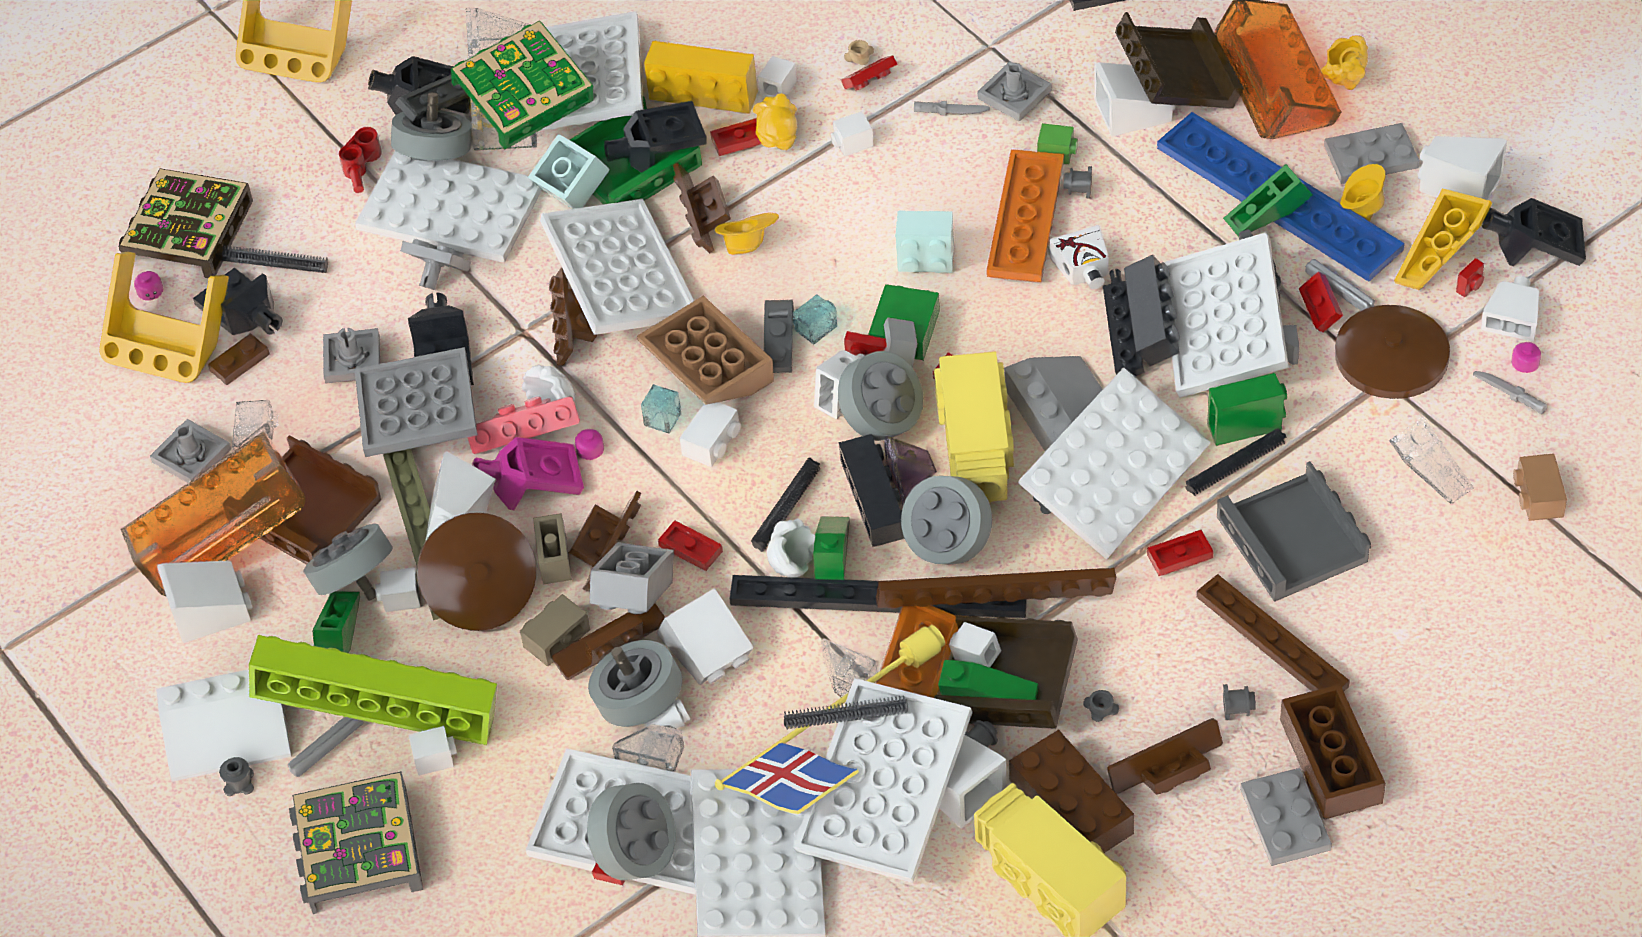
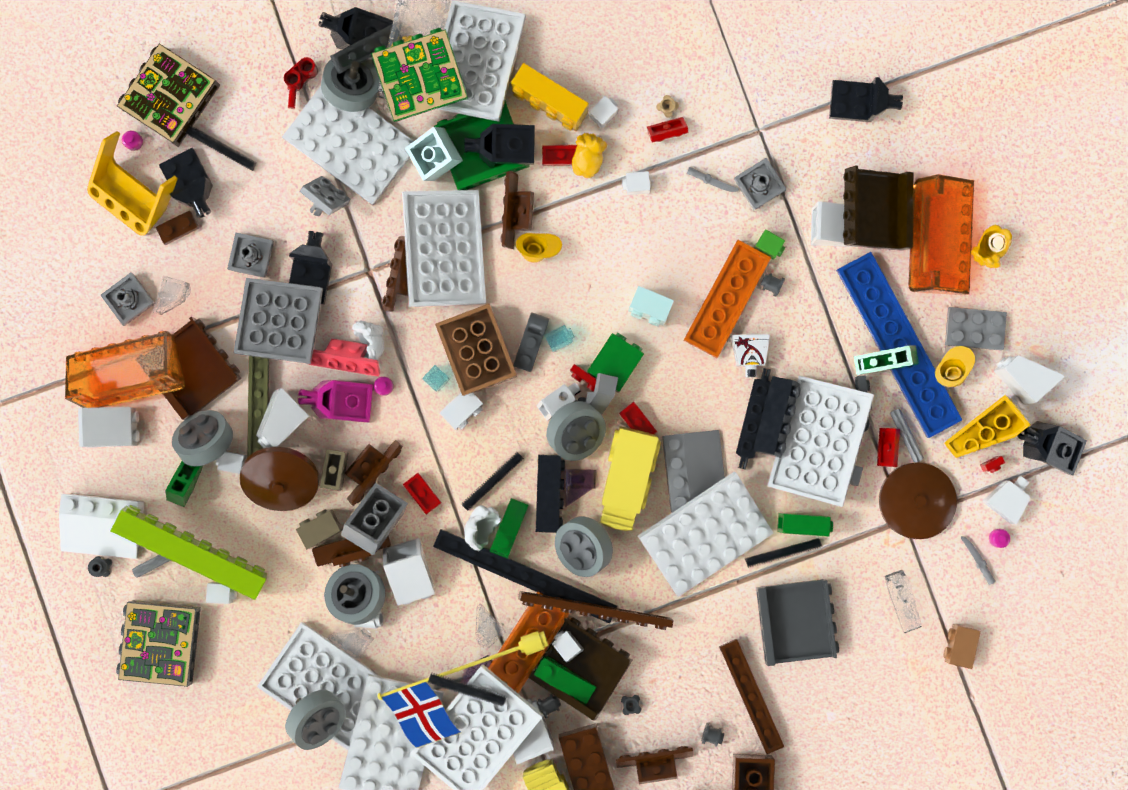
camera: 15 degrees right, 35 degrees up
(1180, 552) = (721, 611): red plate -> none

